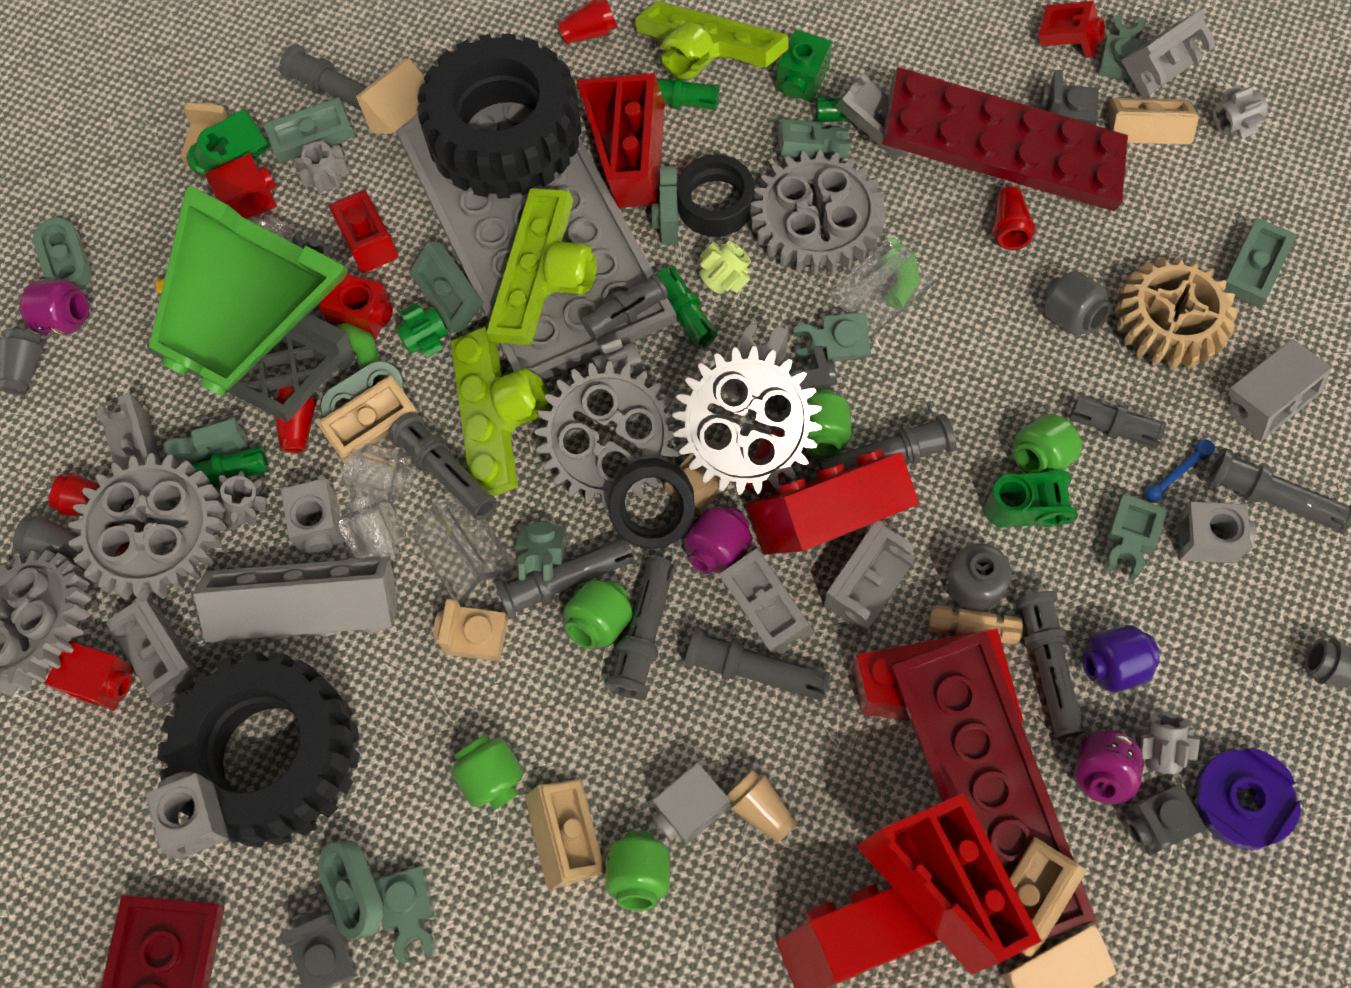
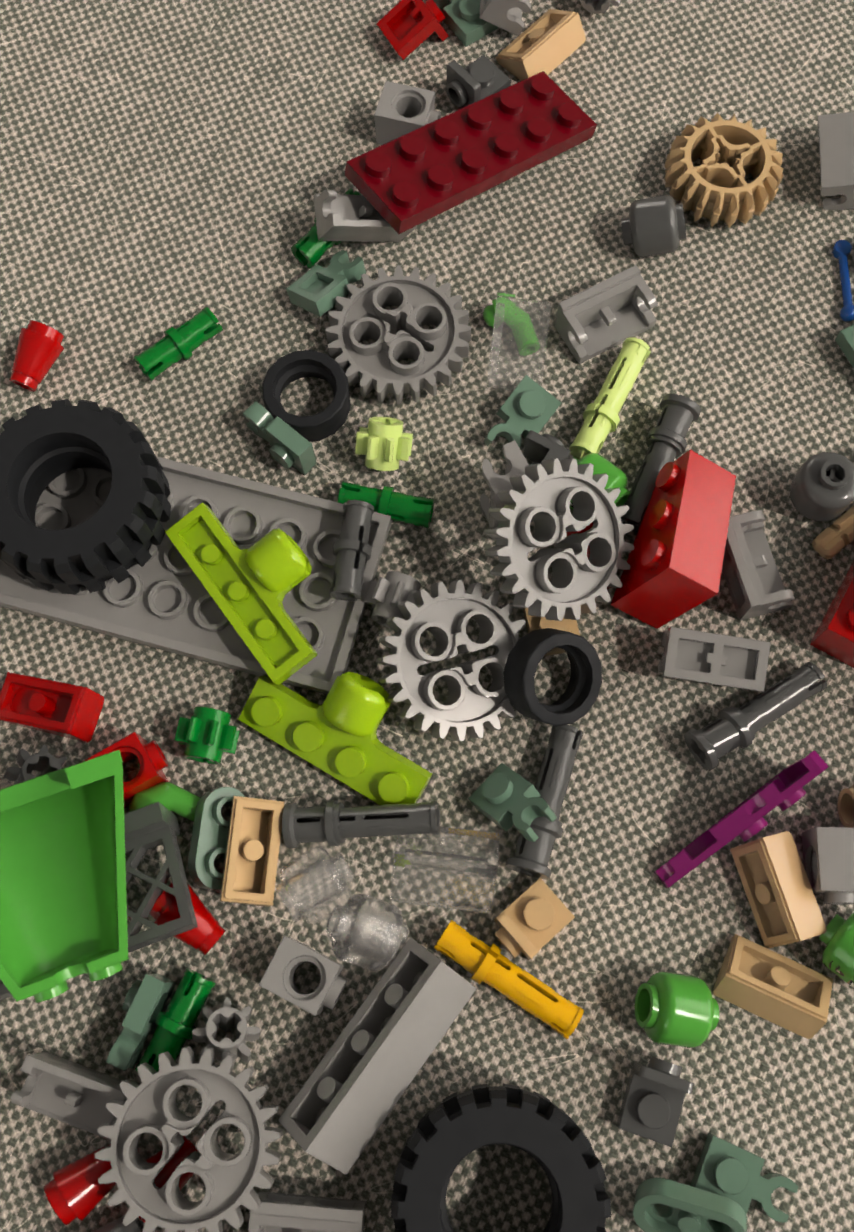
camera: 50 degrees left, 5 degrees up
(413, 809) = (654, 1100): none -> dark grey bracket
(417, 636) = (516, 984): none -> yellow pin
(445, 287) = (181, 680): sand green plate -> none
(597, 614) = (609, 801): bright green head -> none
(628, 133) = (185, 414): red wedge -> none
(636, 779) = (778, 890): none -> tan slope
(639, 647) = (664, 794): dark grey pin -> none
(667, 713) = (745, 818): none -> magenta wing
(701, 37) = (157, 278): lime plate -> none
(717, 539) = (627, 652): magenta head -> none
(803, 66) = (254, 231): green brick -> none
(890, 387) = (602, 415): none -> yellowish green pin
(971, 328) = (606, 314): none -> light grey hinge
(992, 73) = (403, 111): none -> light grey brick
(1012, 220) = (539, 206): red cone -> none
(1039, 498) = (789, 394): green piece -> none
(1047, 444) = (756, 348): bright green head -> none
(1117, 421) = (772, 284): dark grey pin -> none
(1259, 262) = (730, 82): sand green plate -> none

